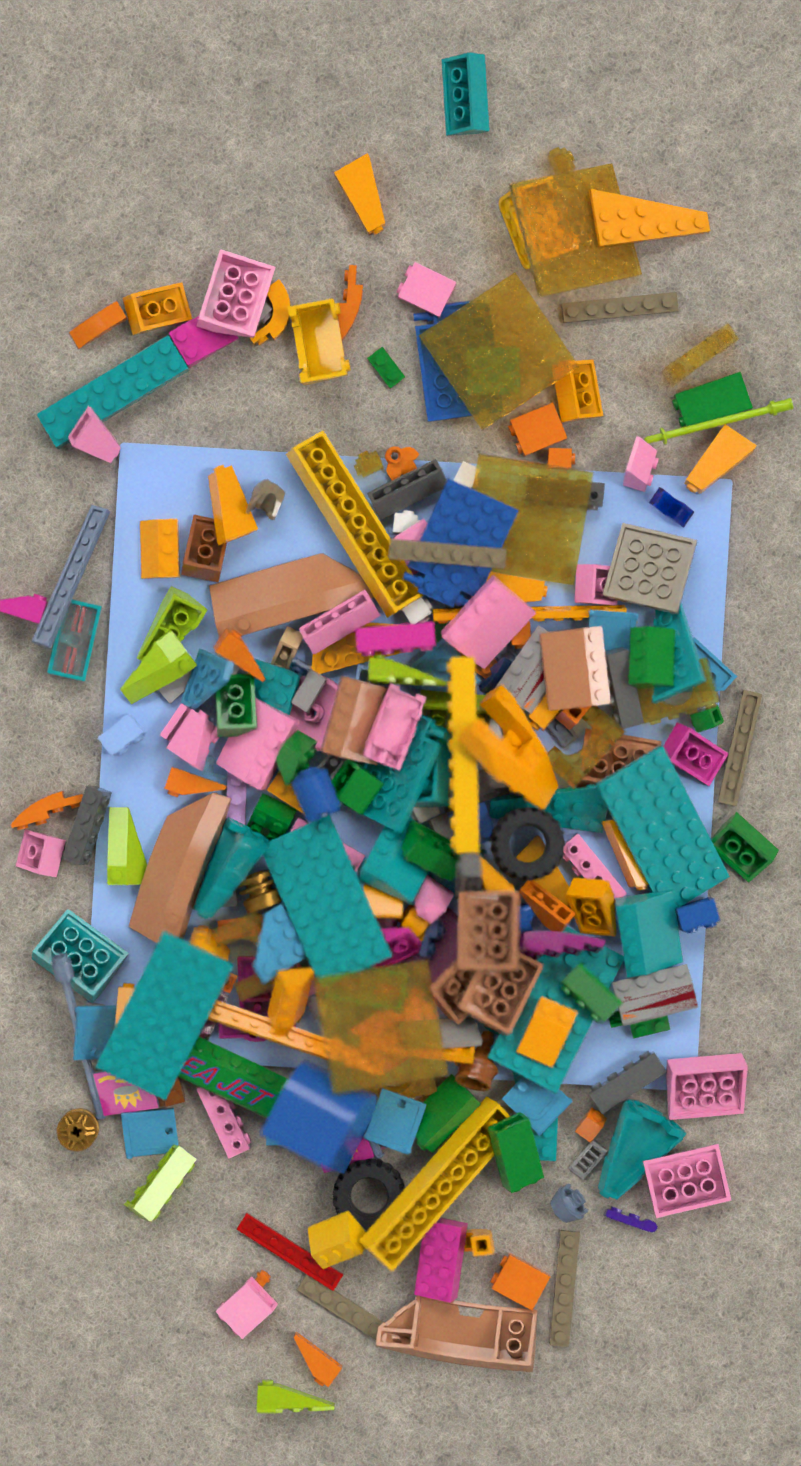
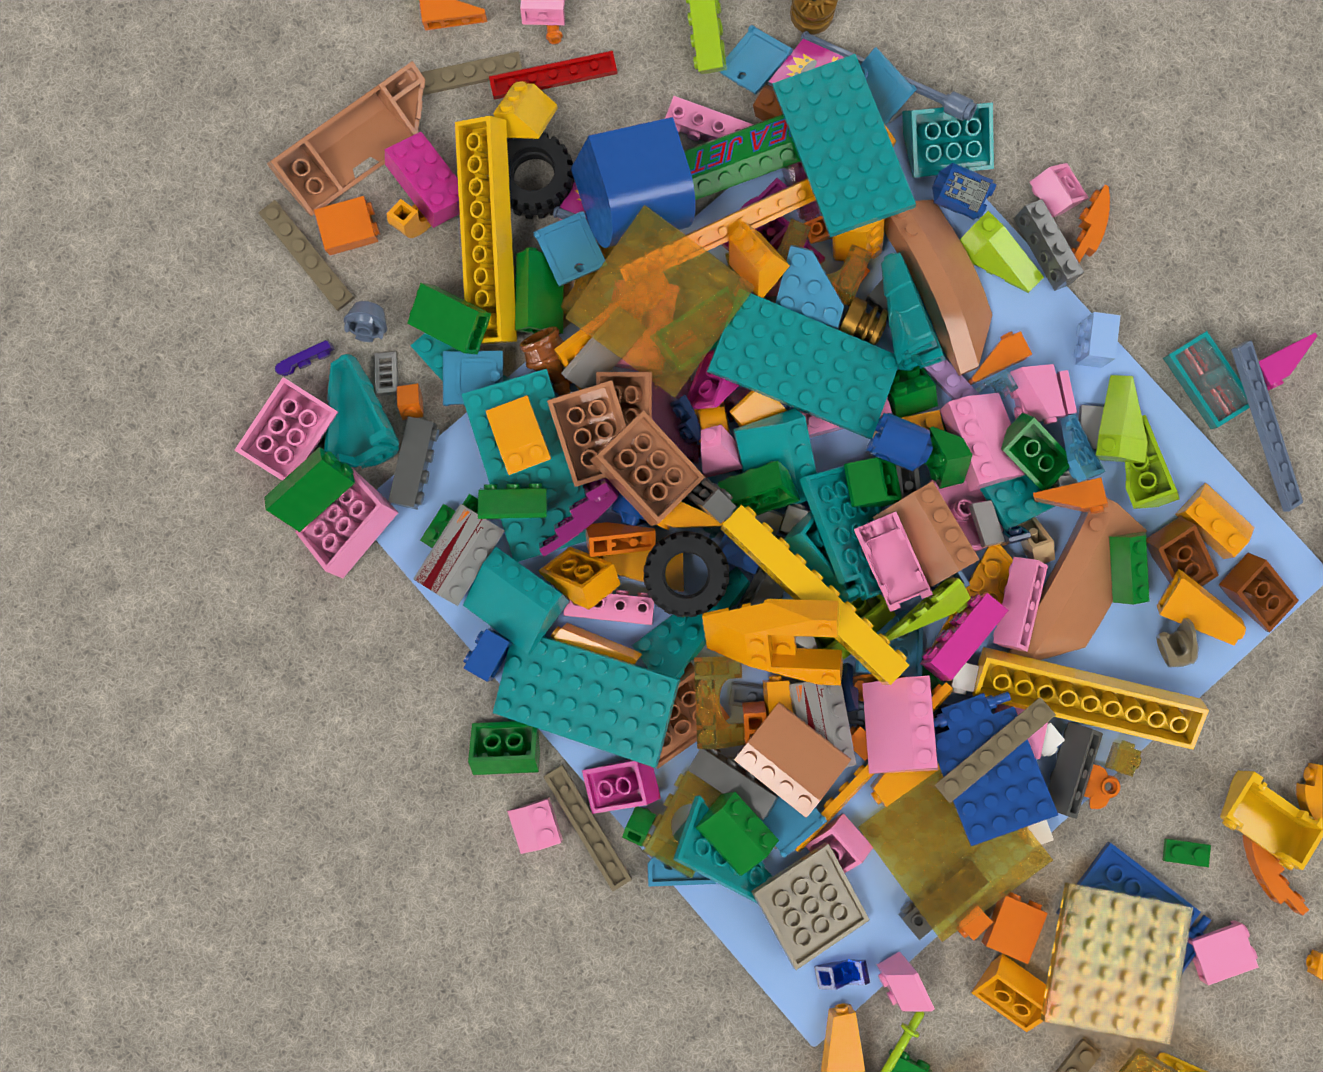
camera: 135 degrees right, 5 degrees down
(109, 913) = (962, 190): none -> blue cylinder
(180, 479) = (1259, 591): none -> dark orange slope
(247, 575) = (1129, 568): none -> green slope
(708, 1128) = (309, 489): none -> green brick
(771, 780) = (535, 826): none -> bright pink slope

